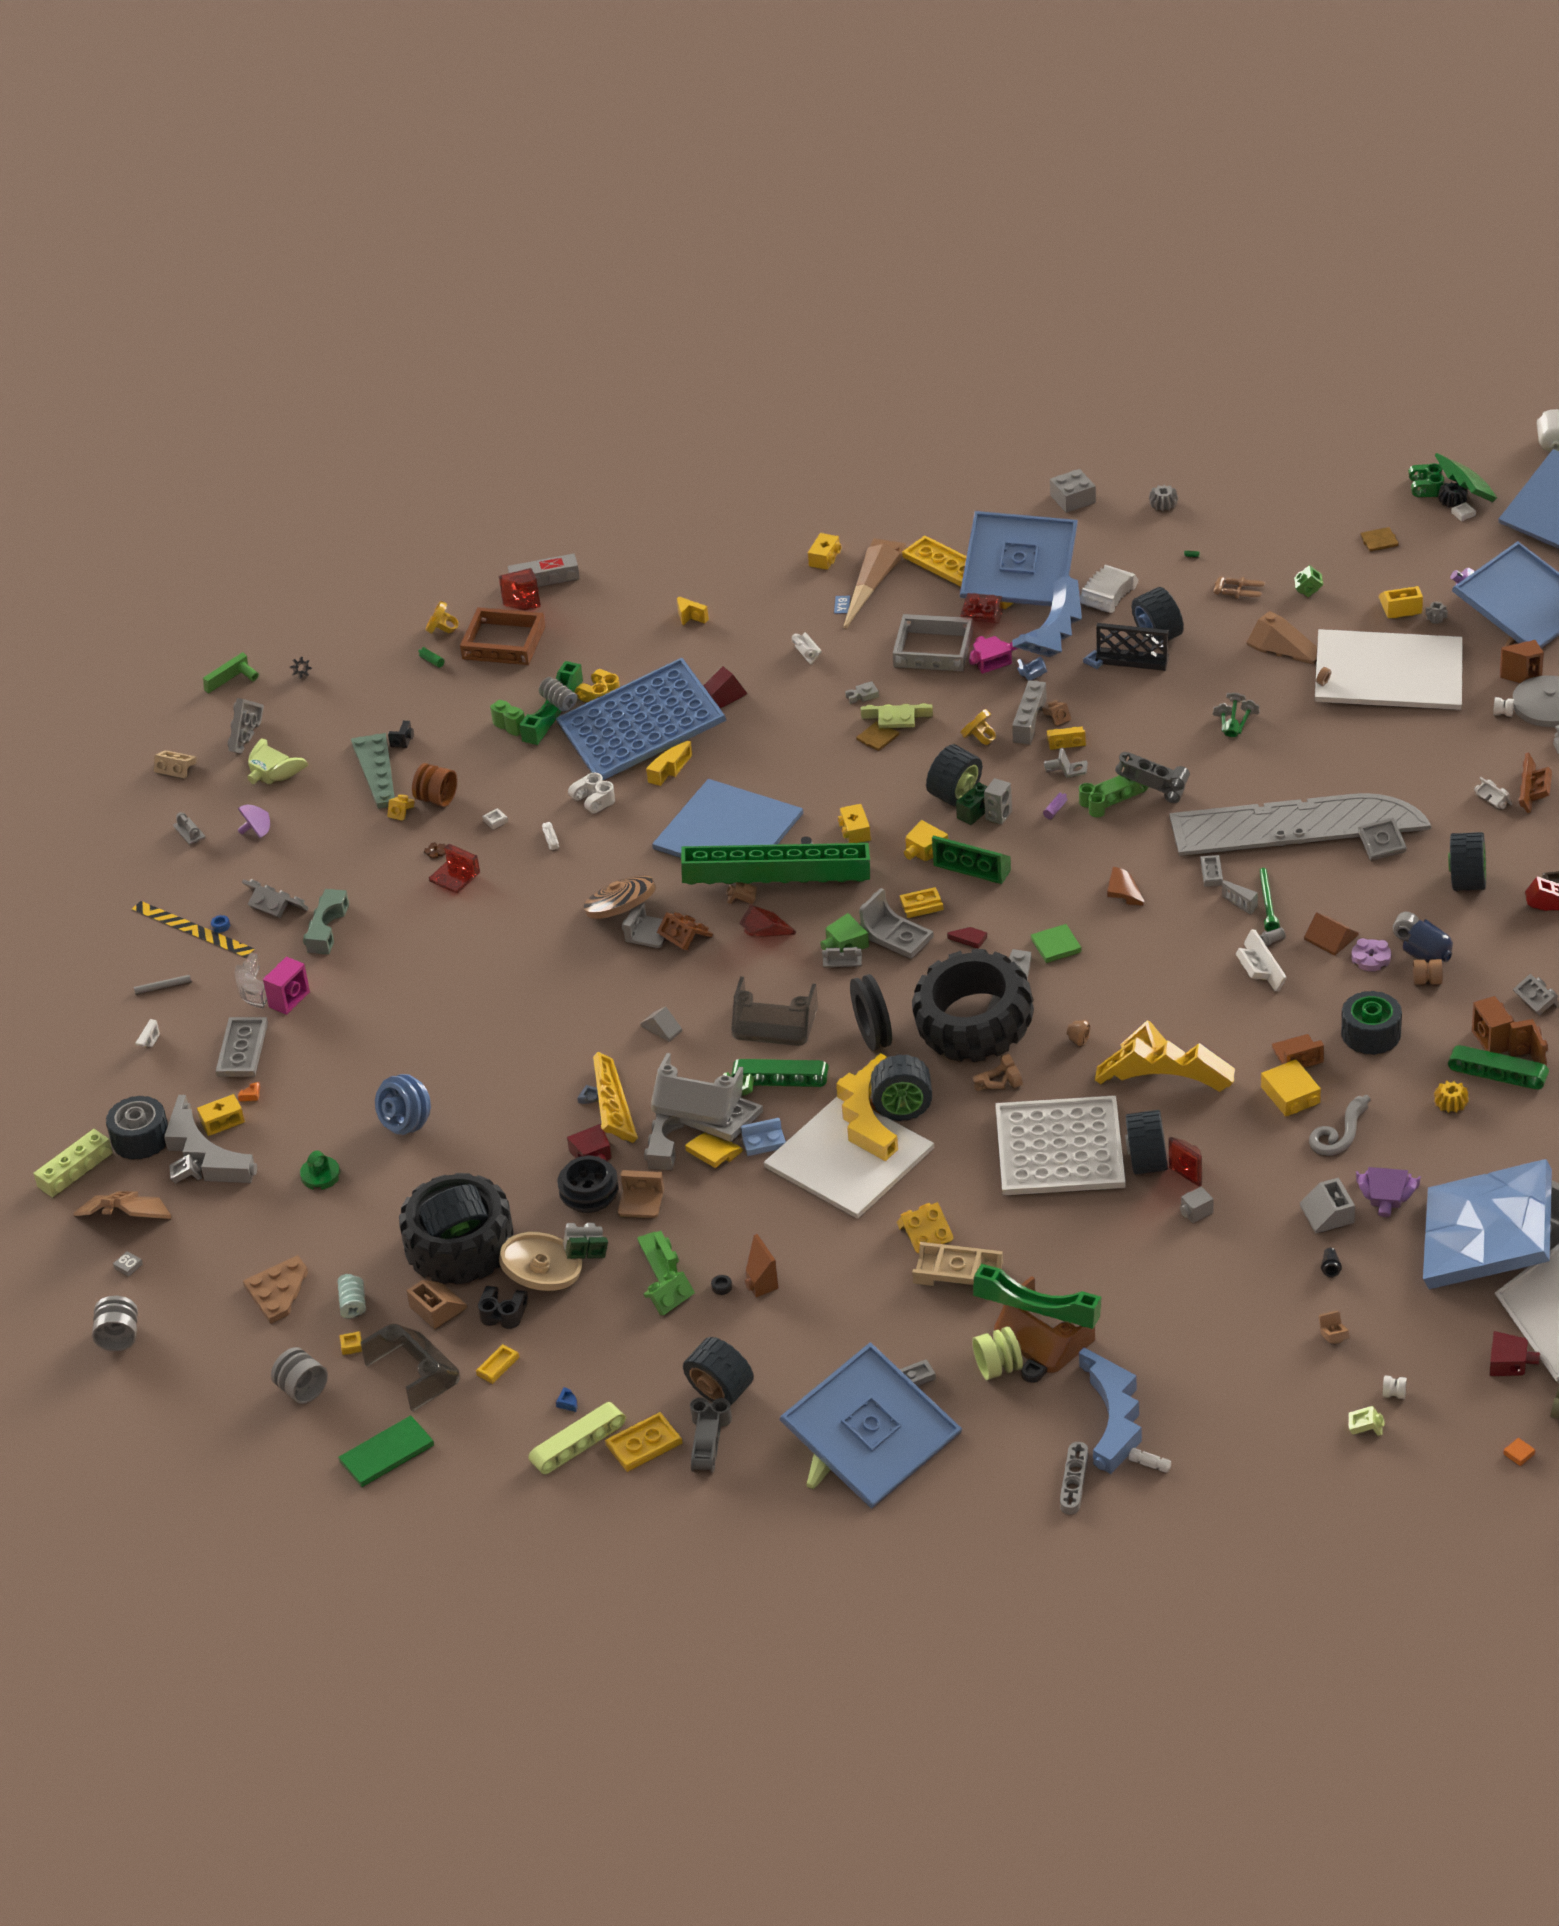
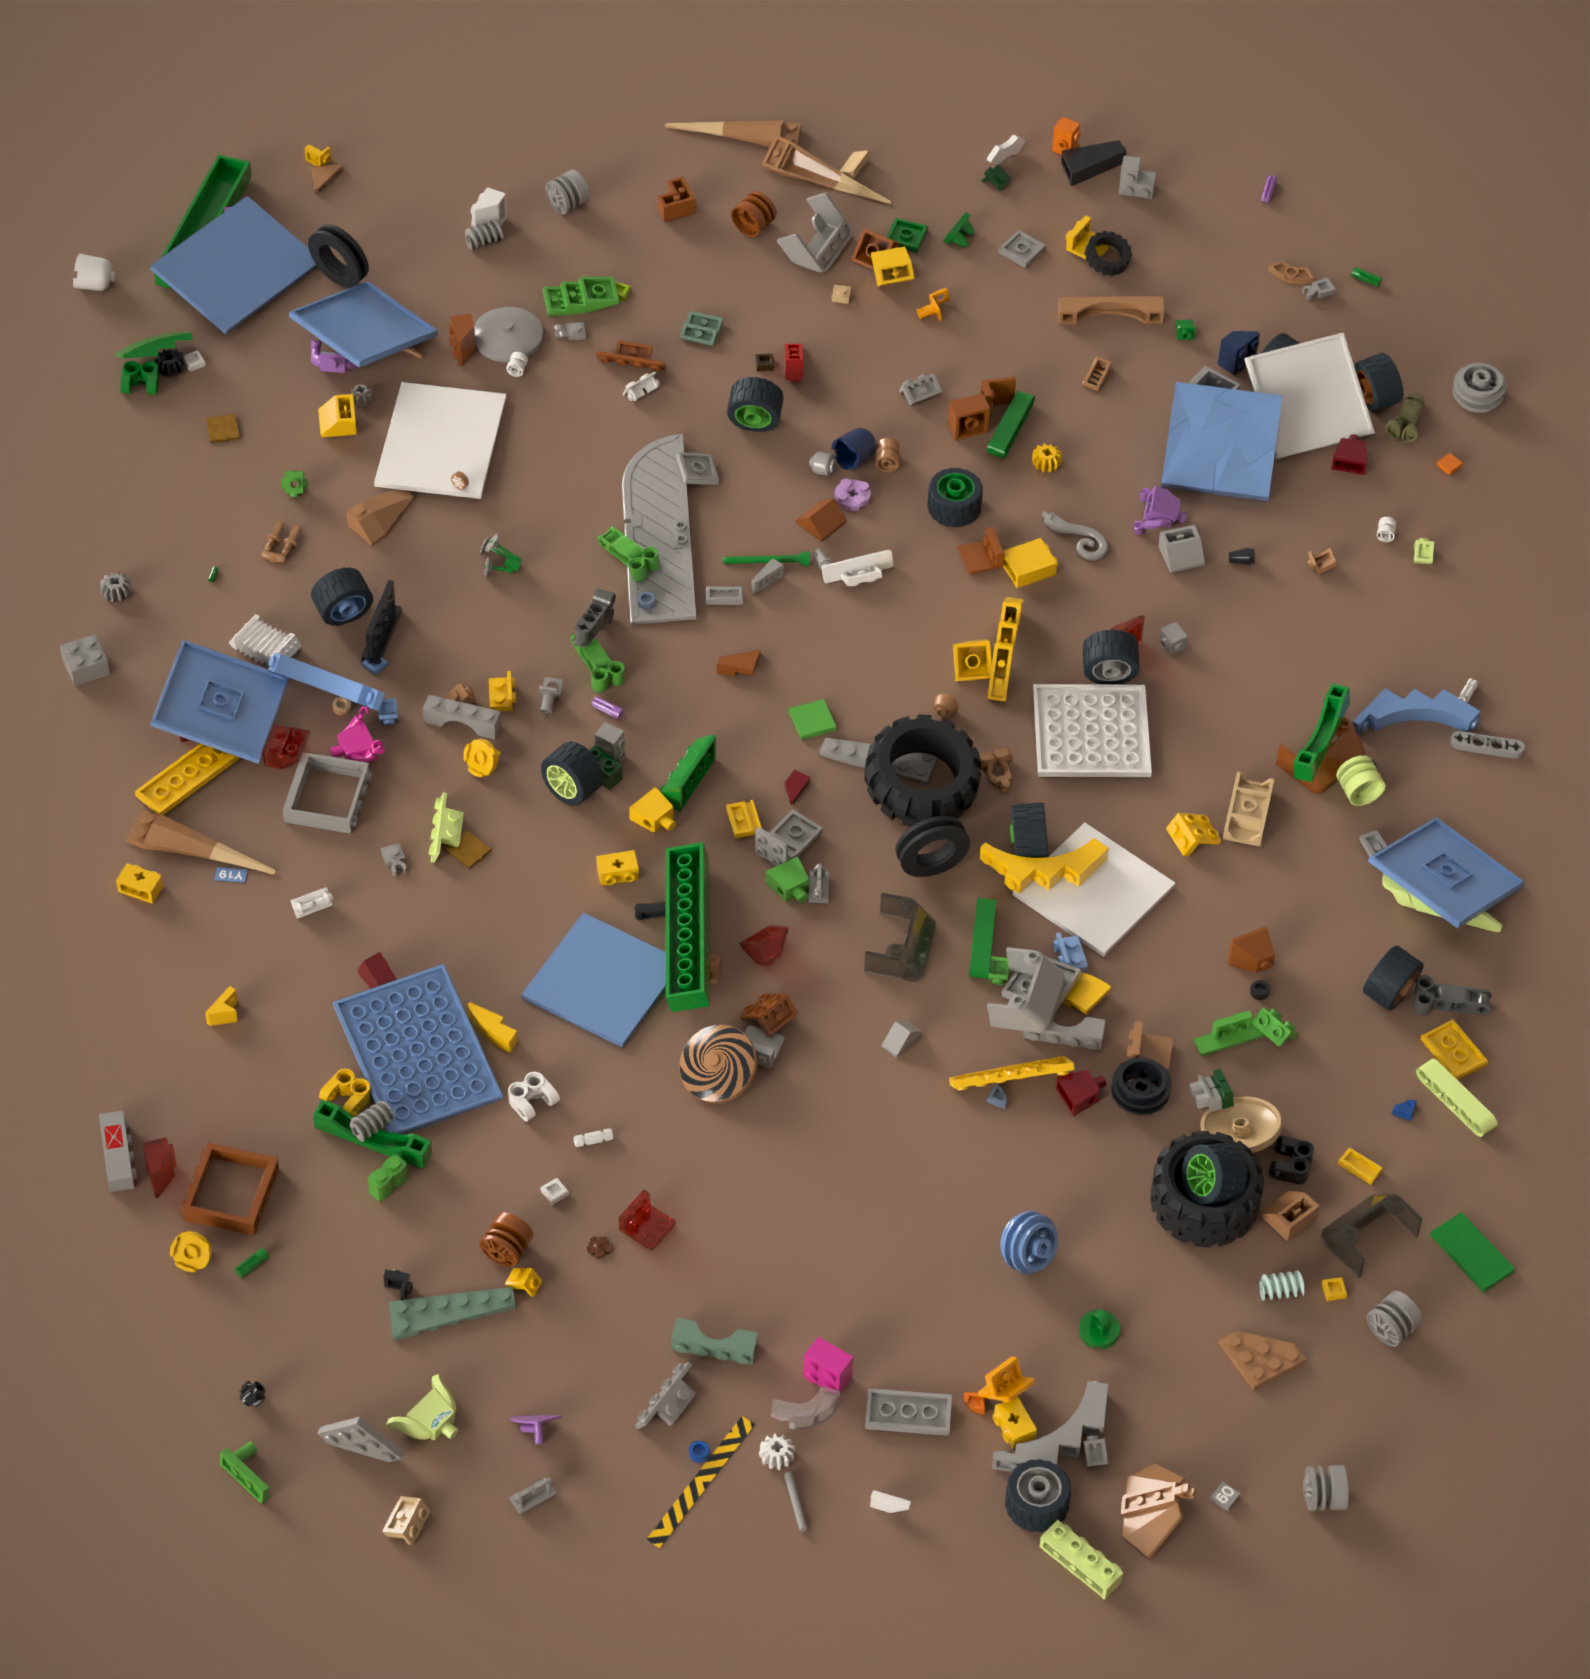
camera: 95 degrees left, 10 degrees up
(209, 966) = (777, 1451): none -> white gear
(255, 1098) = (1006, 1382): none -> light orange bracket
(1194, 817) = (647, 600): none -> sand blue tile
(1252, 799) = (630, 553): none -> bright green piece

